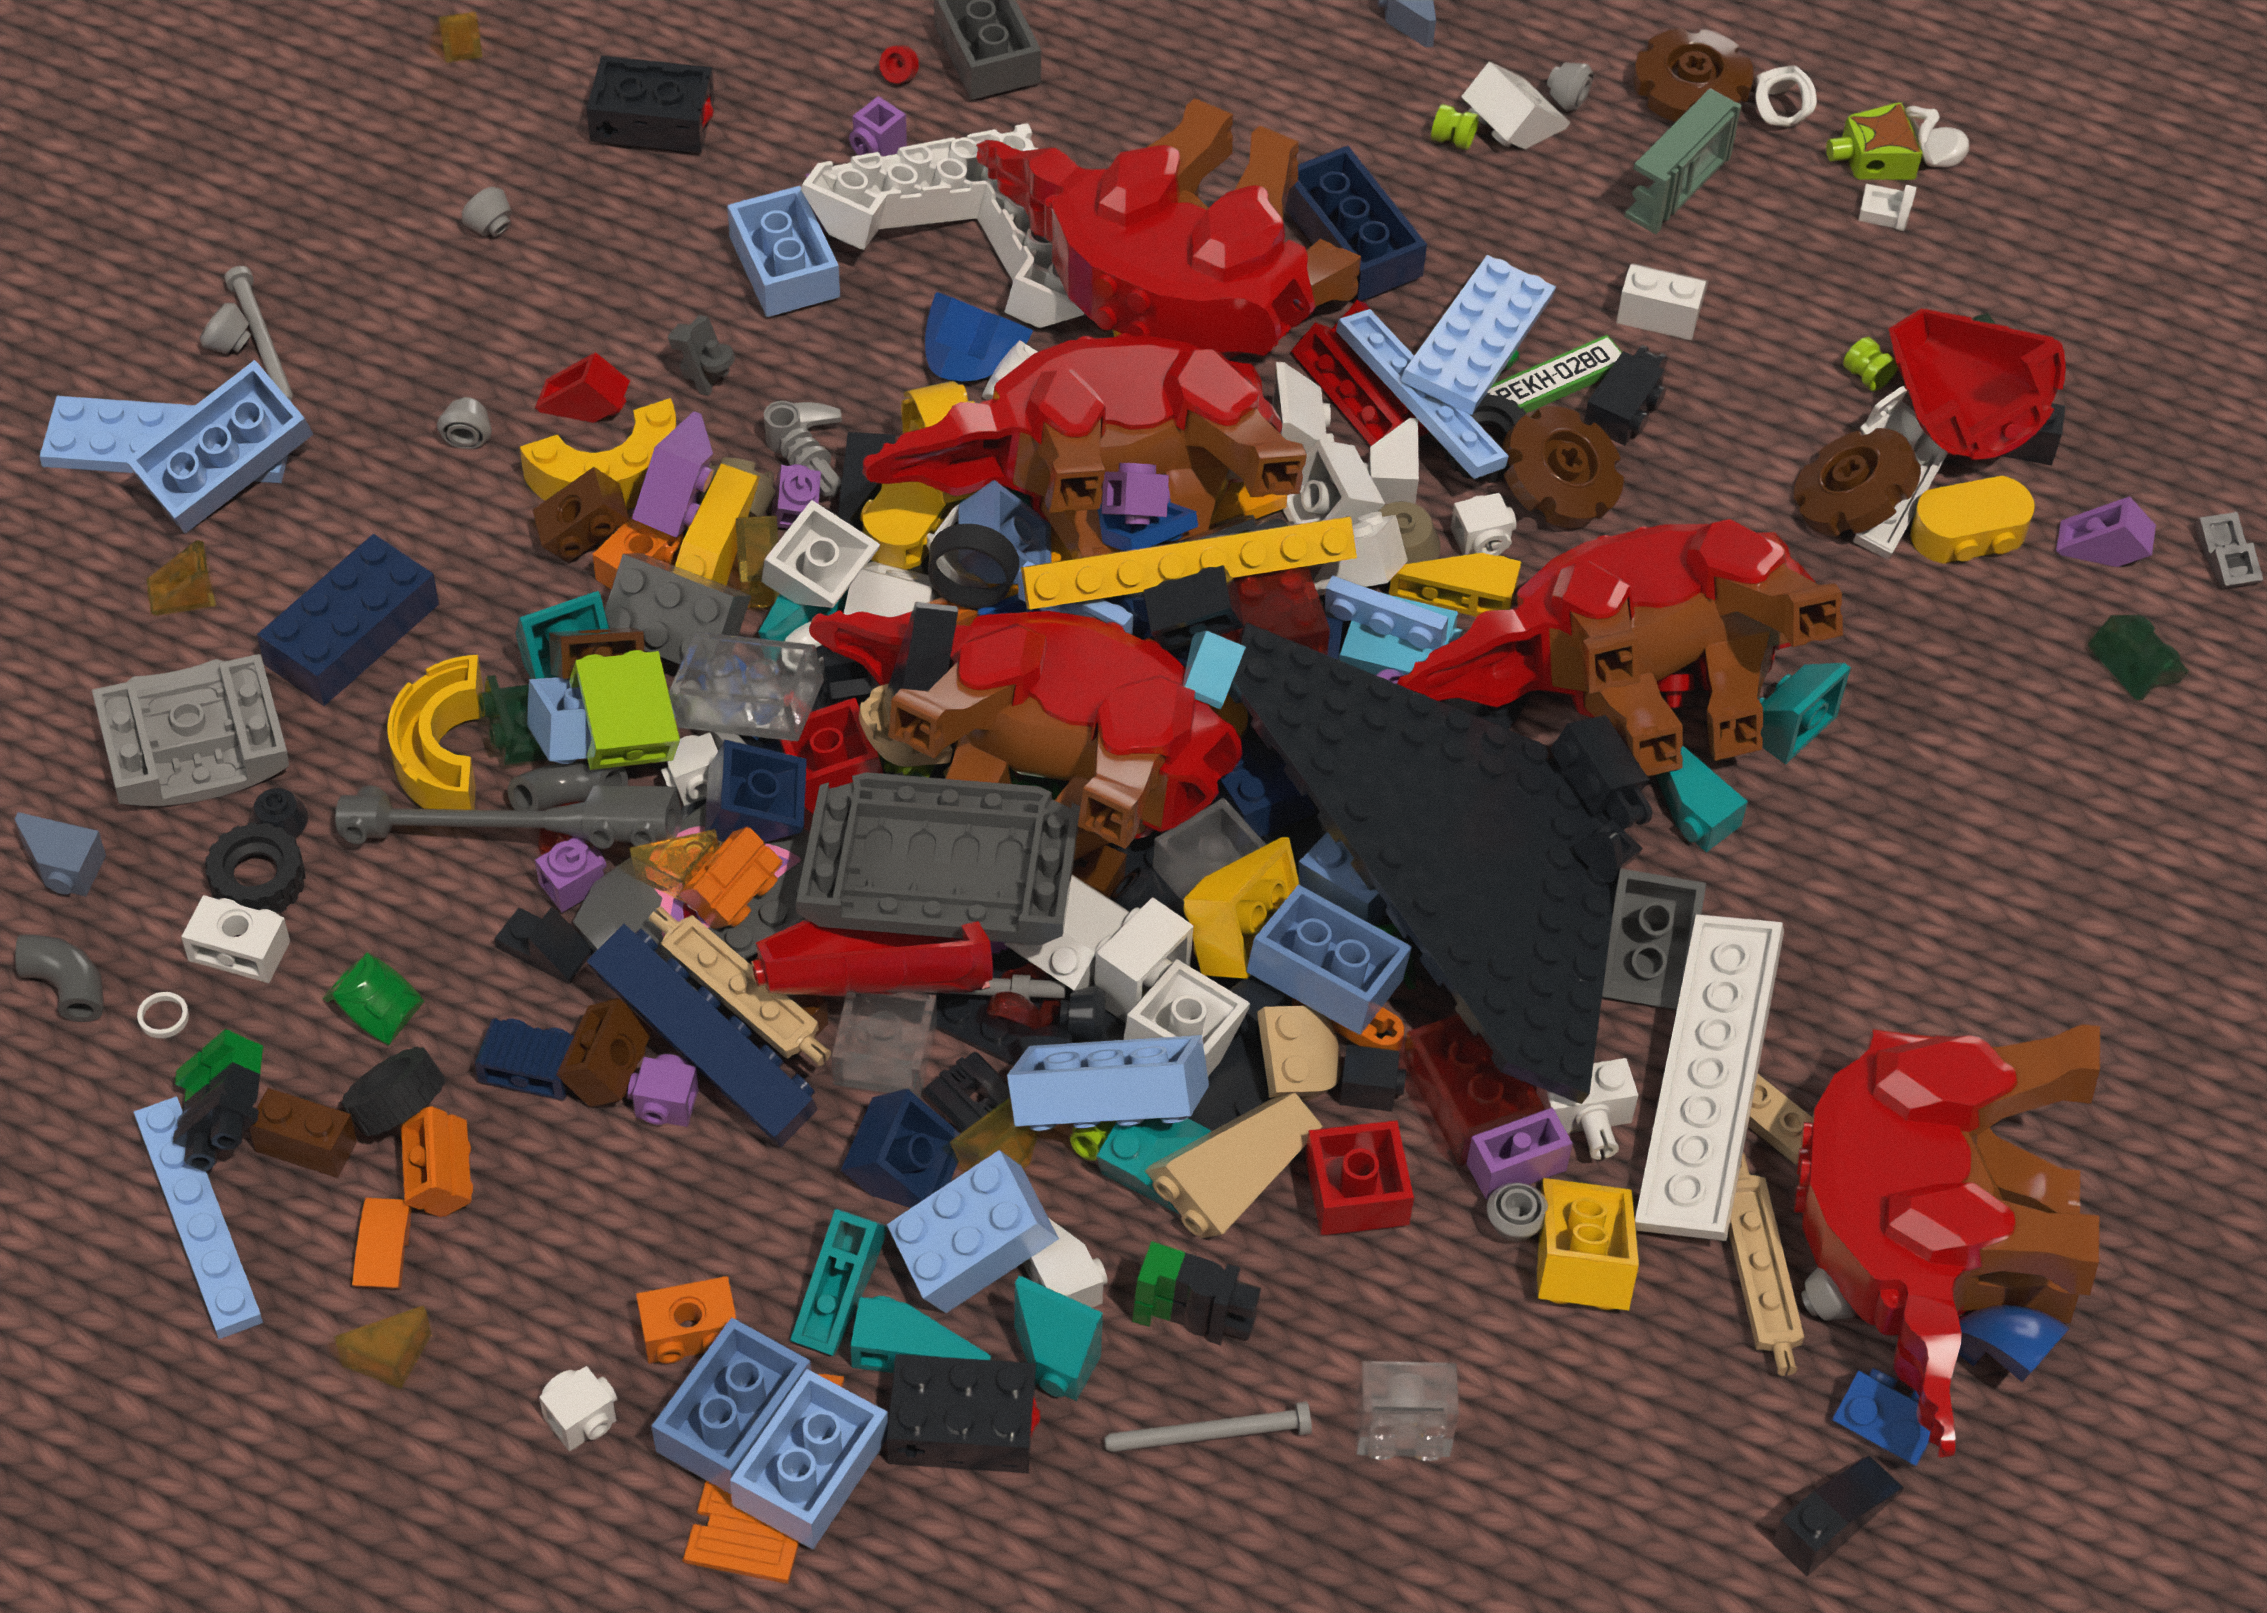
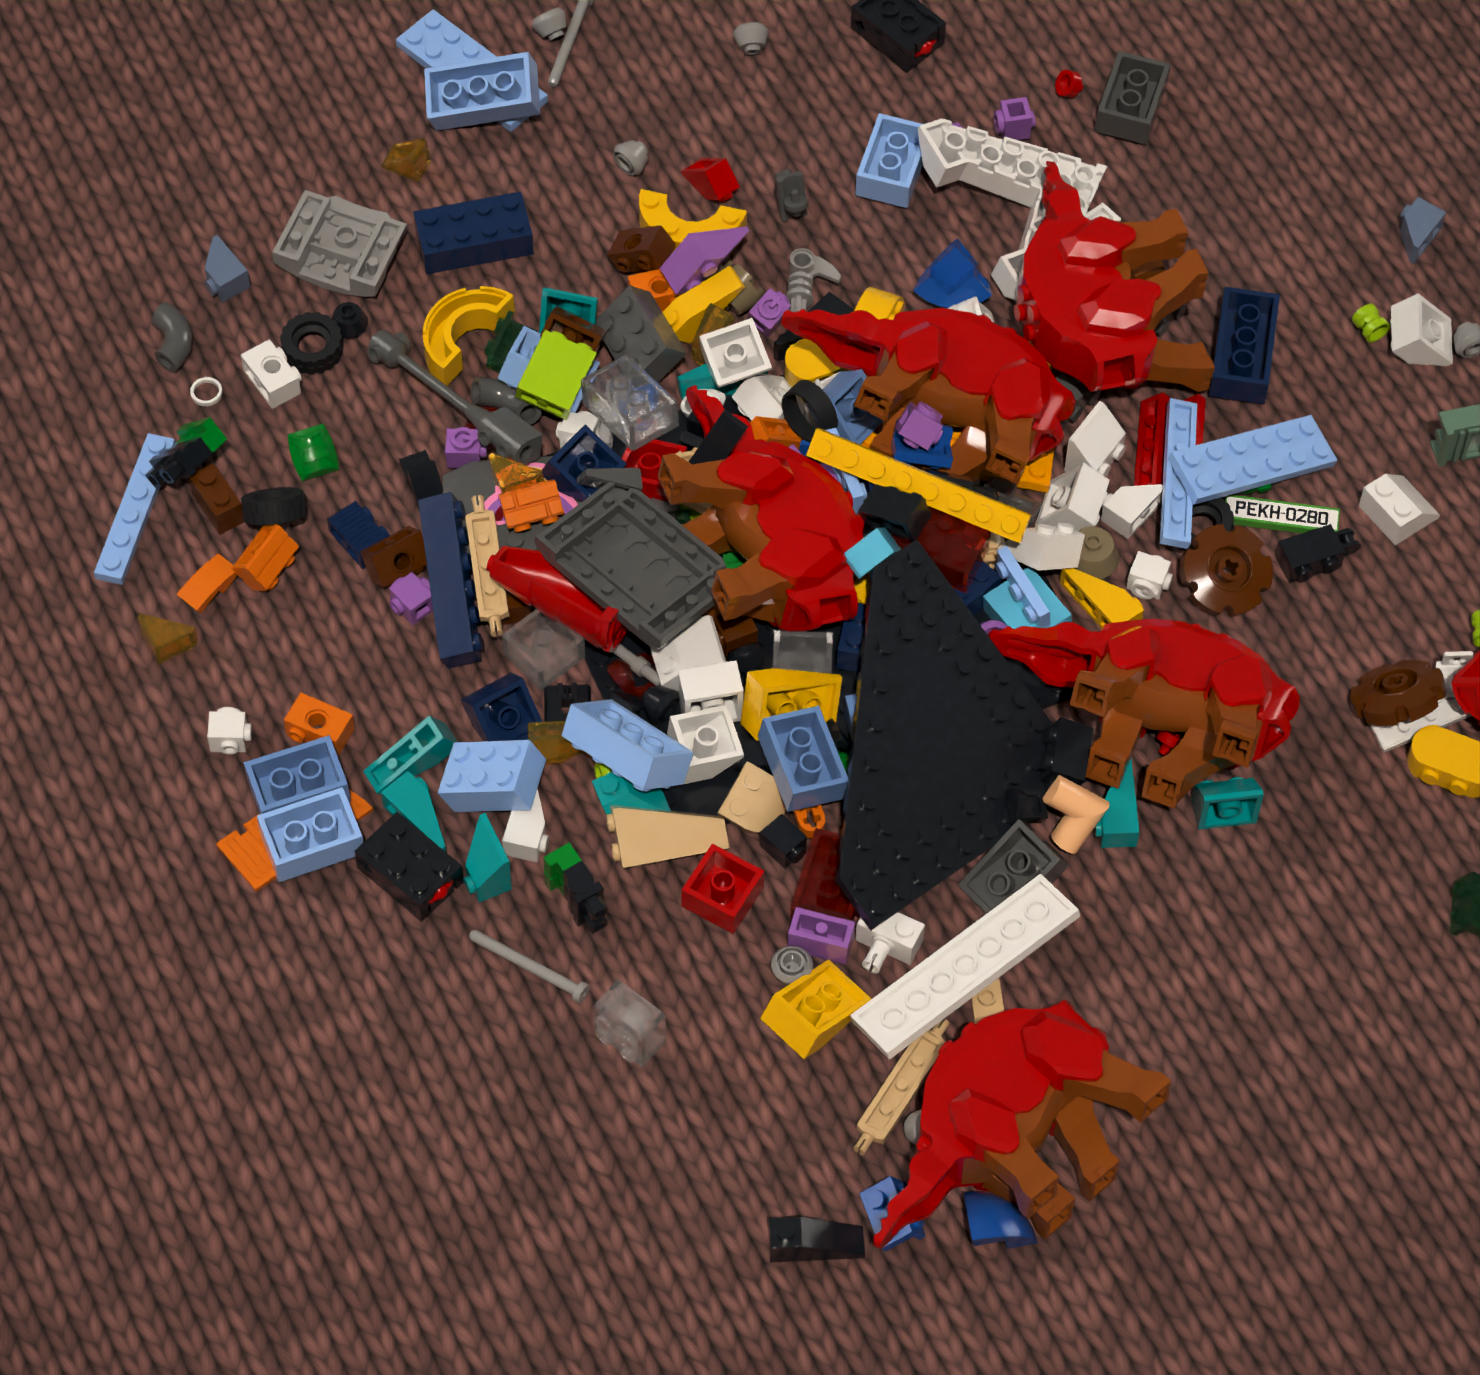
camera: 40 degrees right, 5 degrees up
(804, 788) = (622, 477): none -> dark grey slope
(1674, 818) = (1081, 811): none -> light nougat brick

